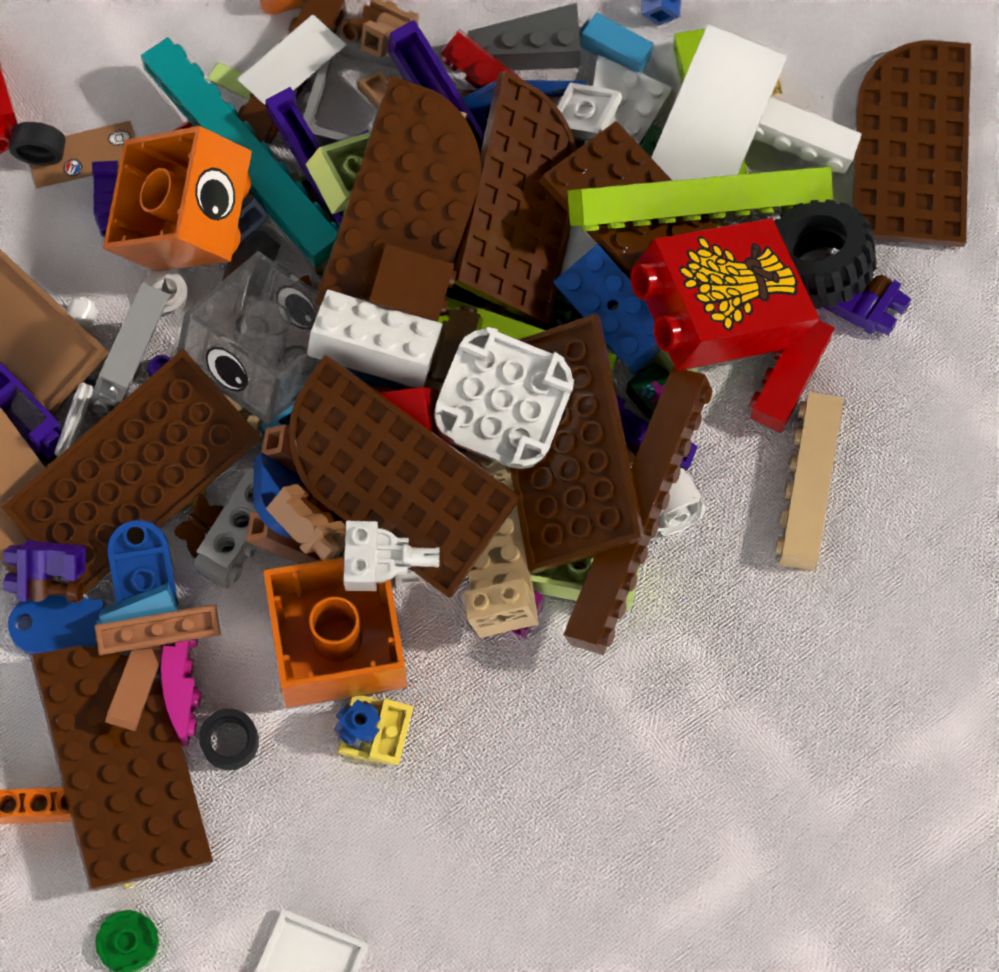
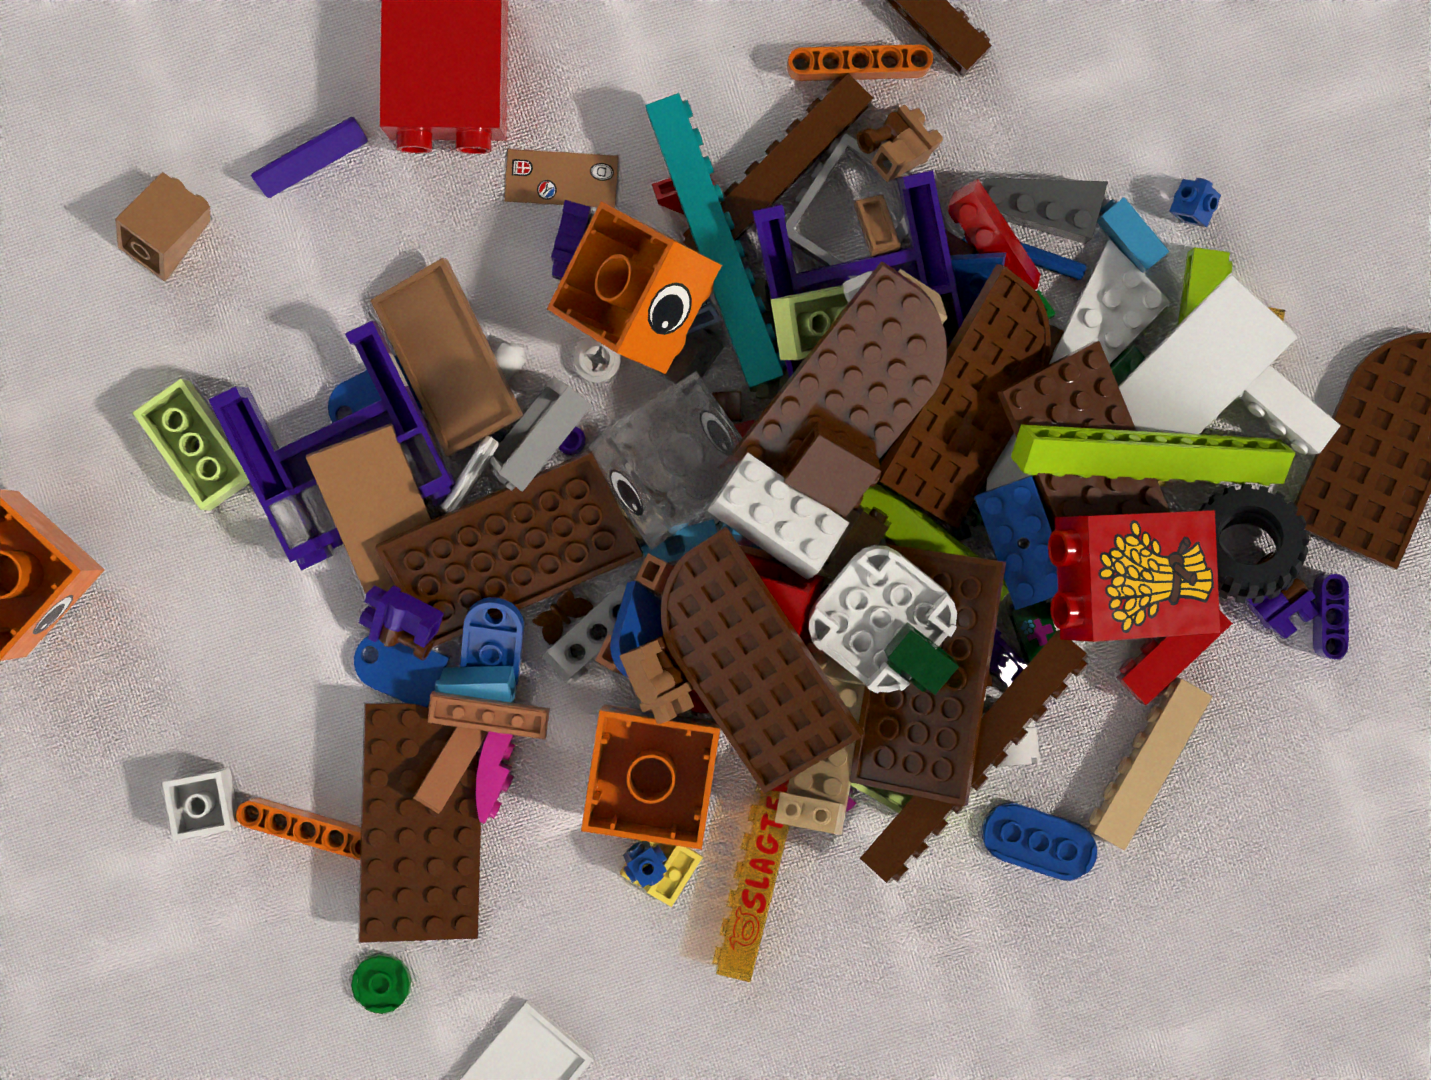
camera: 20 degrees right, 20 degrees up
(37, 143) = (516, 161): black tyre -> none
(221, 717) = (520, 853): black tyre -> none
(227, 78) = (734, 144): yellowish green sticker -> none
(292, 59) = (797, 152): white sticker -> none
(378, 556) = (706, 741): white brick -> none
(472, 709) = (754, 888): none -> clear yellow brick
(551, 418) = (920, 659): none -> dark green brick
(588, 108) = (1075, 307): white tile -> none
(736, 589) = (1039, 841): none -> blue tile
(924, 288) = (1339, 628): none -> dark purple beam

